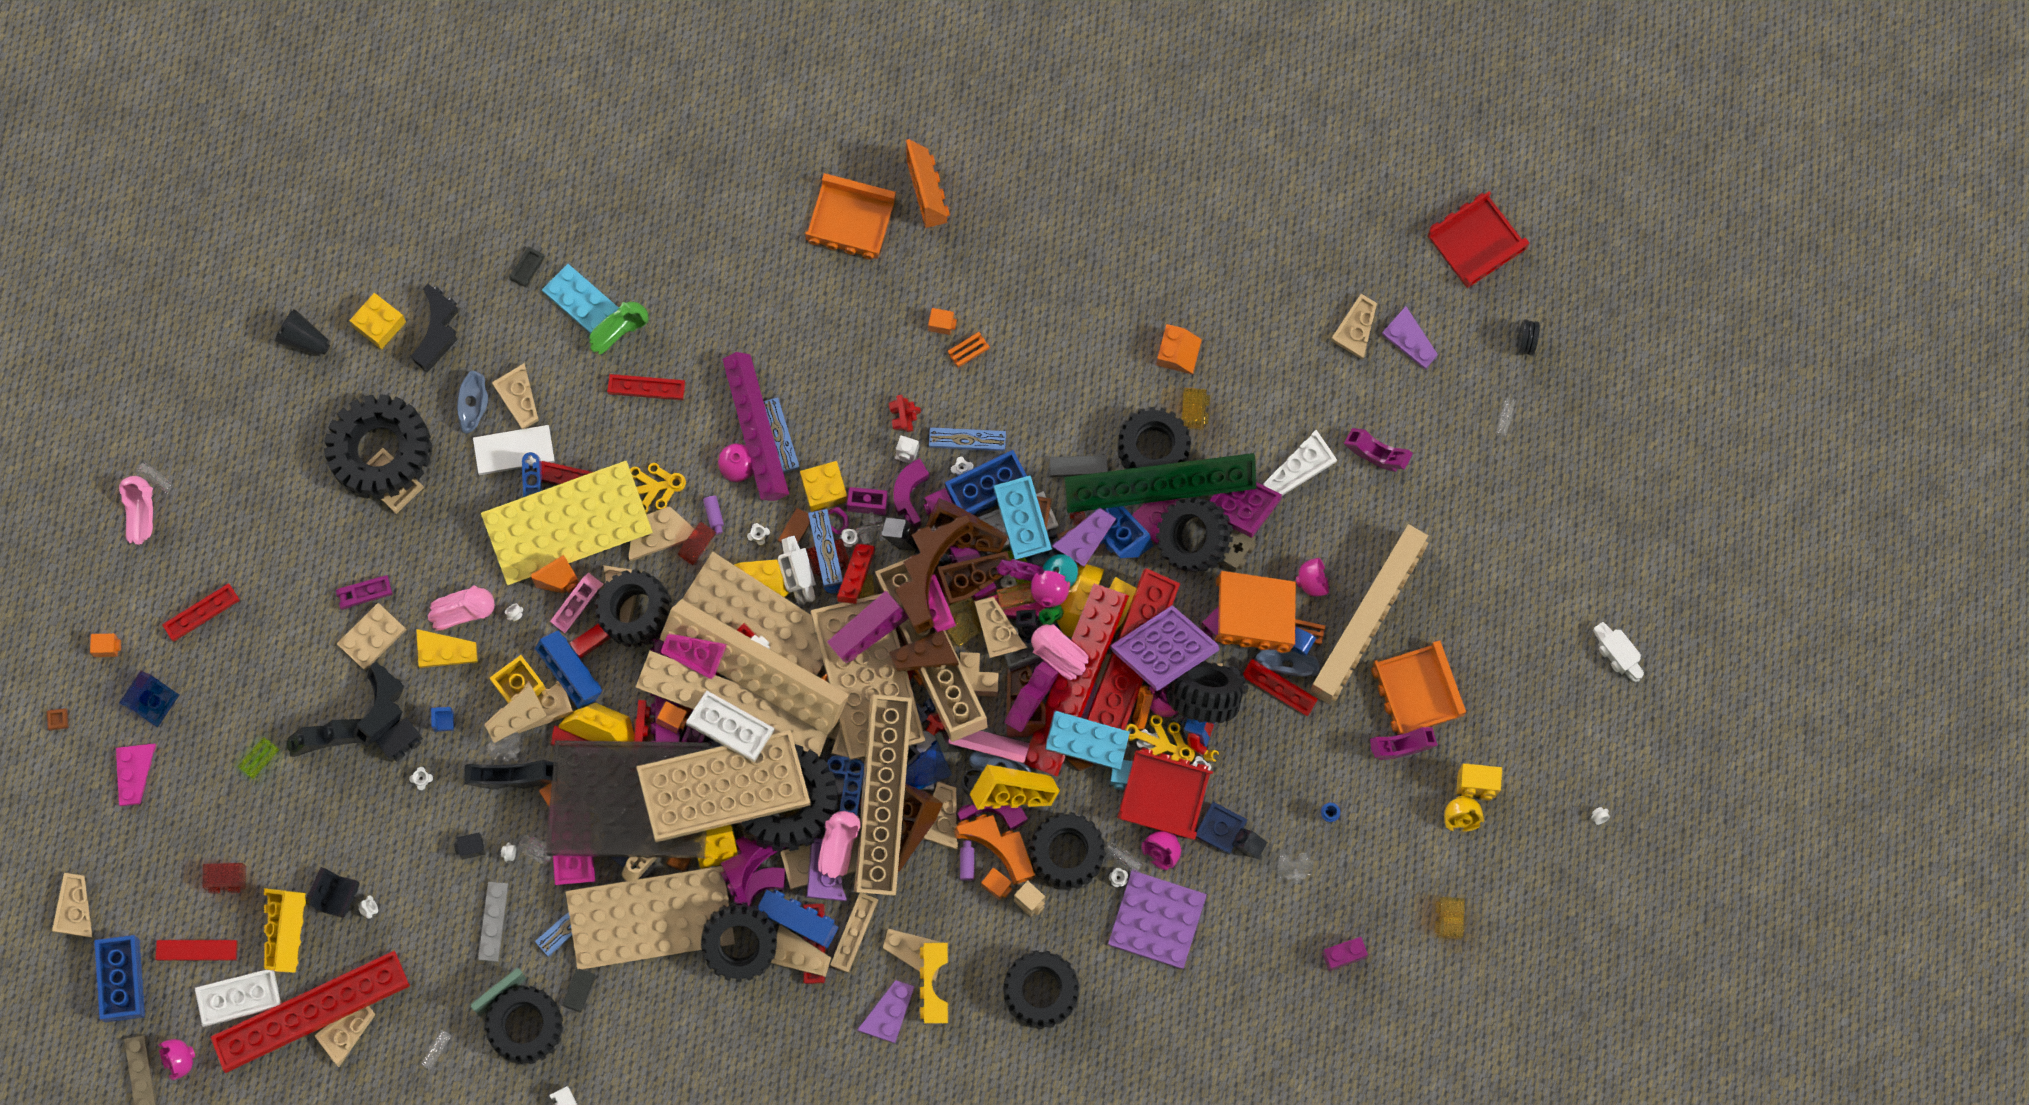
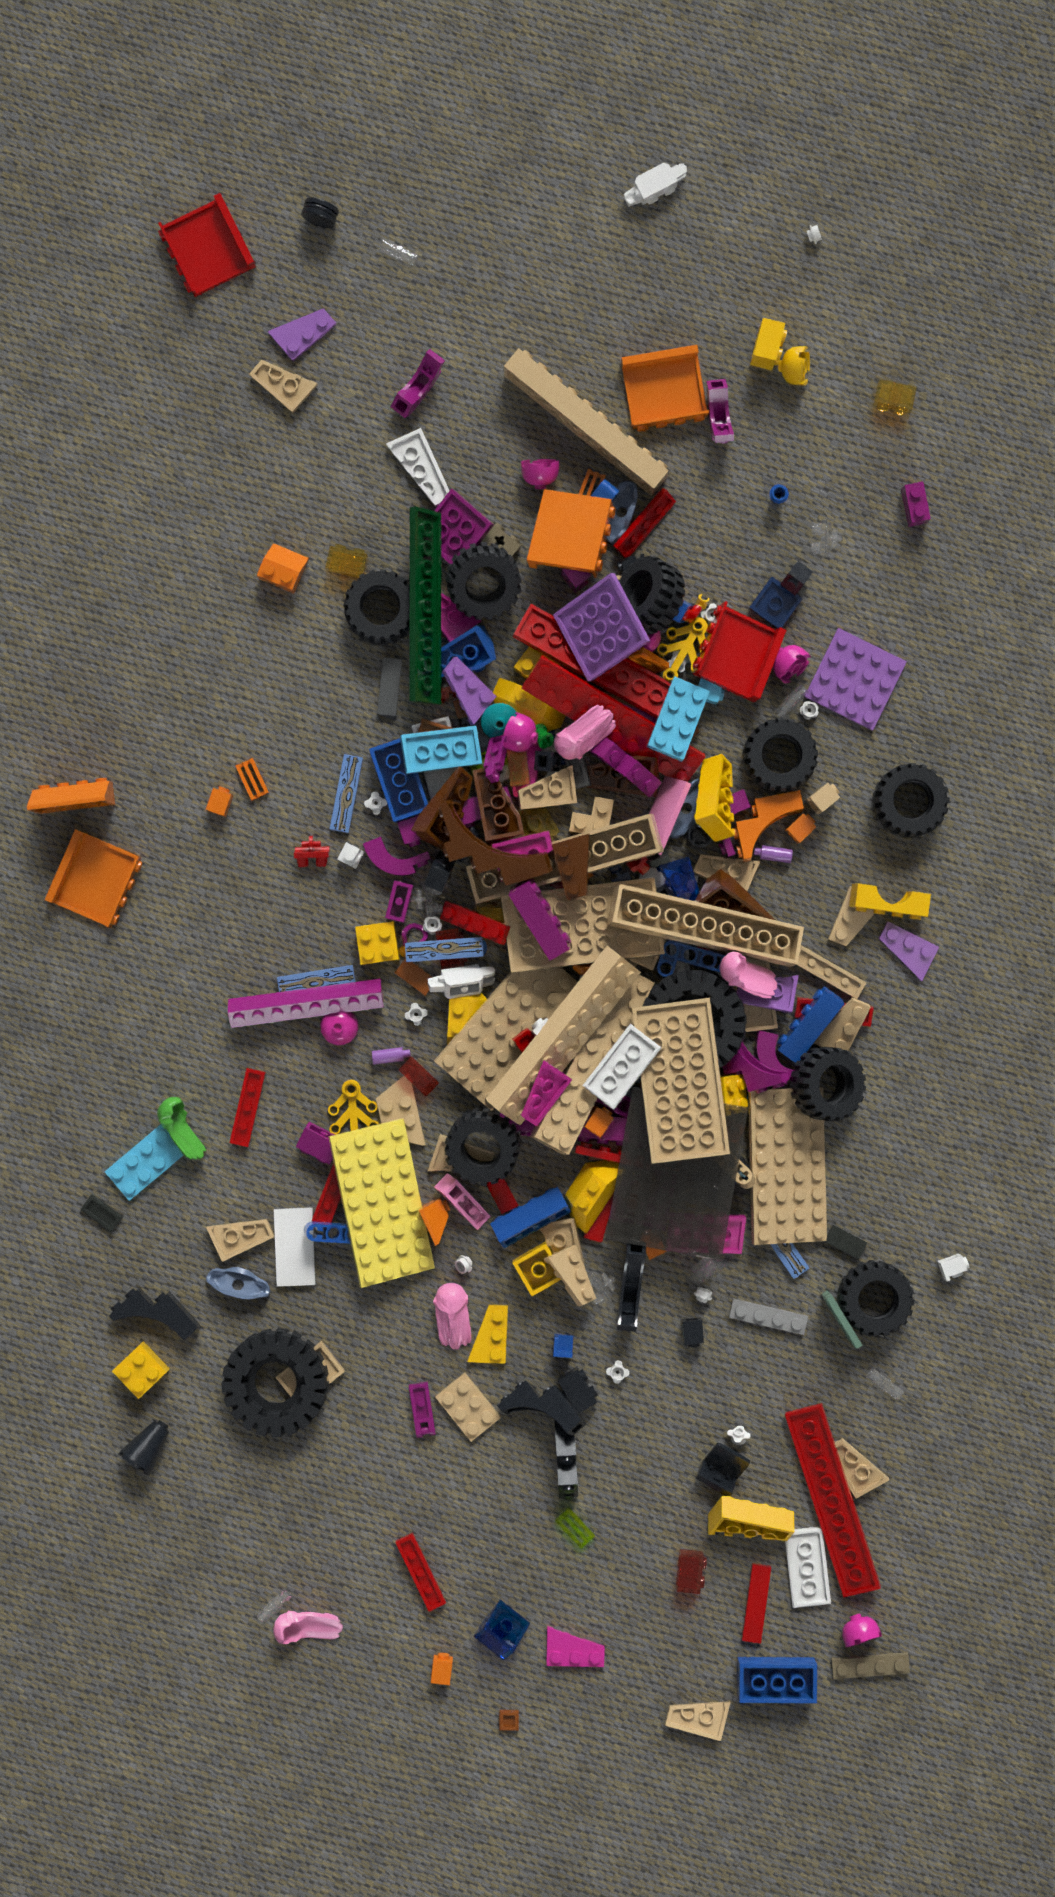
camera: 70 degrees left, 15 degrees up
(619, 450) = (315, 1142): none -> magenta brick

